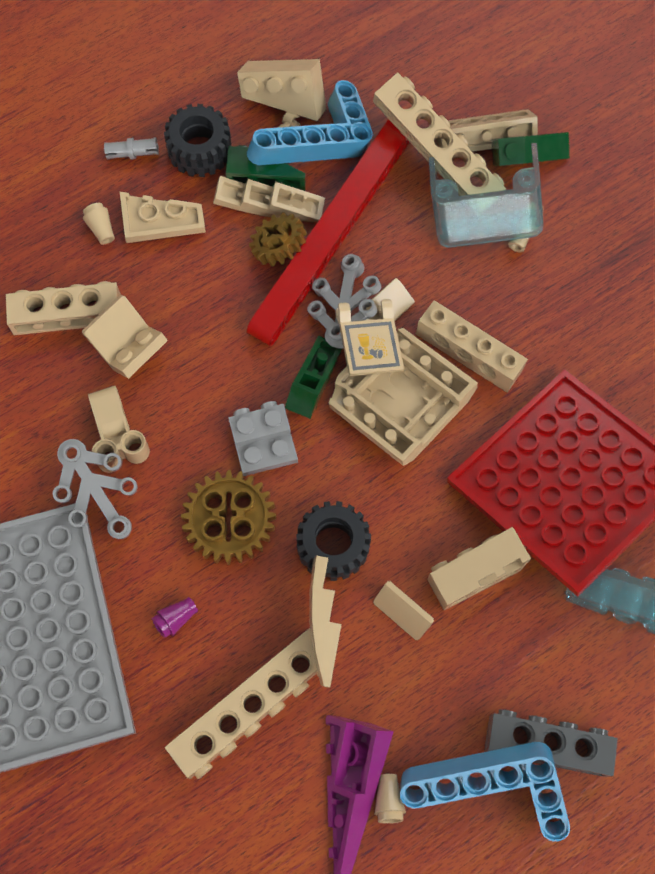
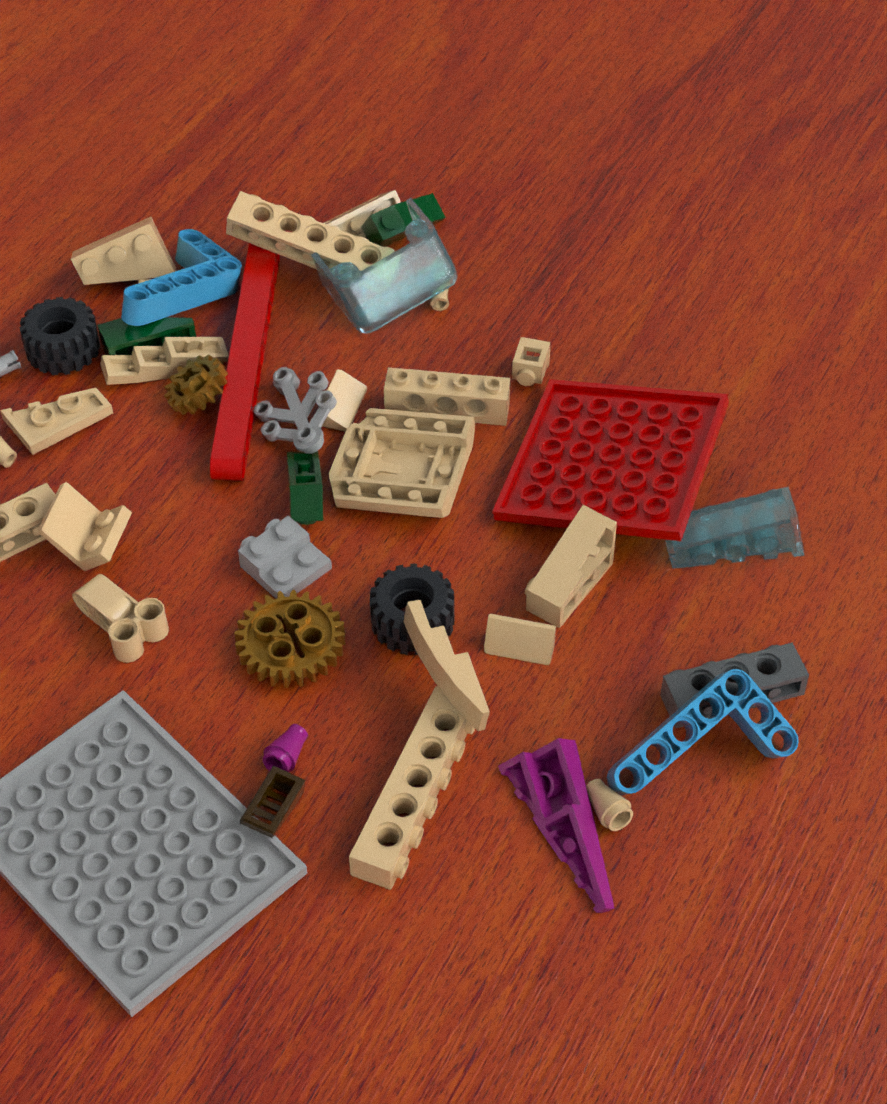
camera: 25 degrees left, 20 degrees down
(91, 485) = (129, 664): light grey plant -> none
(158, 649) = (283, 782): none -> dark brown slope
(370, 344) = (344, 430): tan flag -> none
(559, 337) = (528, 368): none -> tan brick

